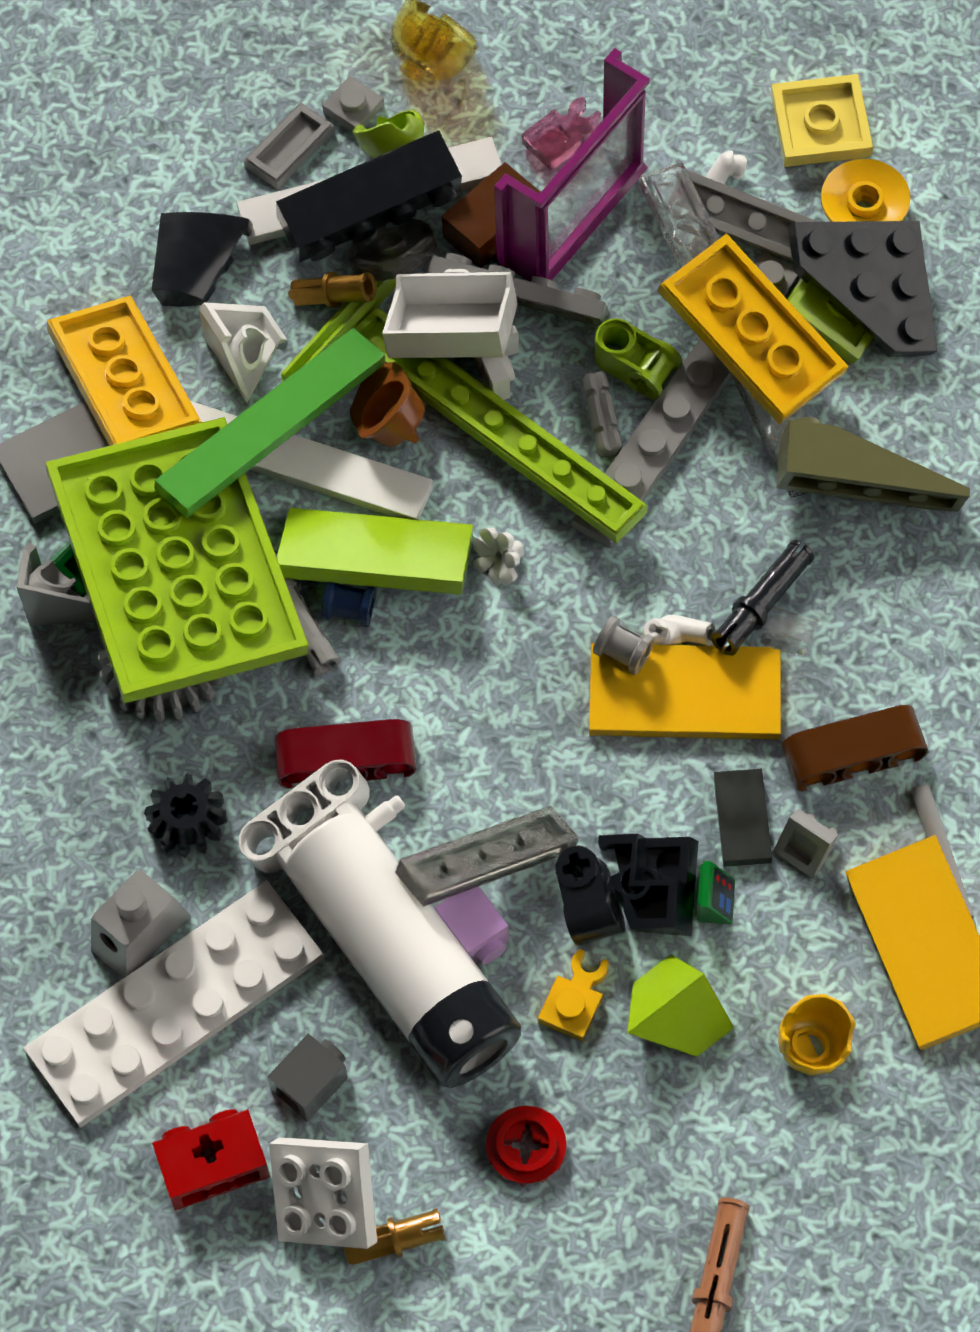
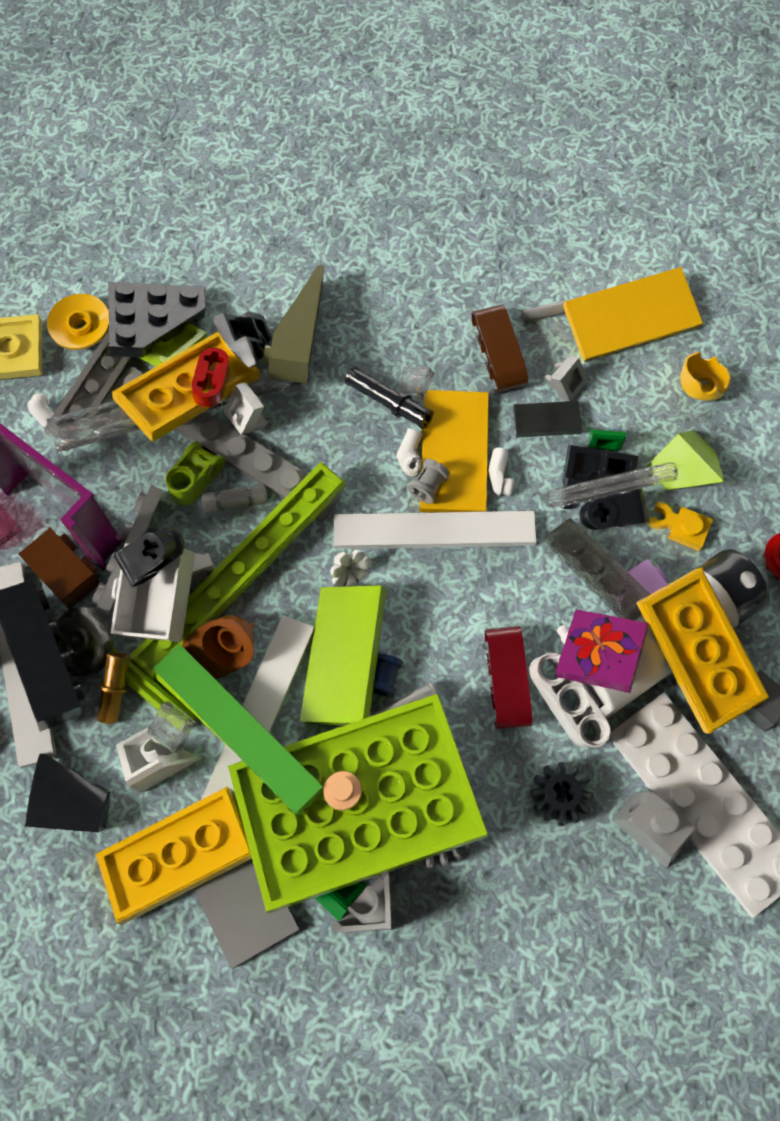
camera: 90 degrees left, 5 degrees up
(182, 533) = (342, 790): none -> light nougat plate
(280, 358) = (171, 726): none -> clear tile
(356, 832) = (602, 650): none -> magenta tile
(359, 965) = (703, 650): none -> yellow tile
(485, 295) = (149, 555): none -> black piece
(561, 668) = (434, 530): none -> white tile
(627, 892) = (611, 485): none -> clear axle
(650, 744) = (497, 471): none -> white arm
(726, 415) = (245, 410): none -> white bracket
(756, 350) = (217, 377): none -> red beam
(839, 396) = (244, 335): none -> black slope

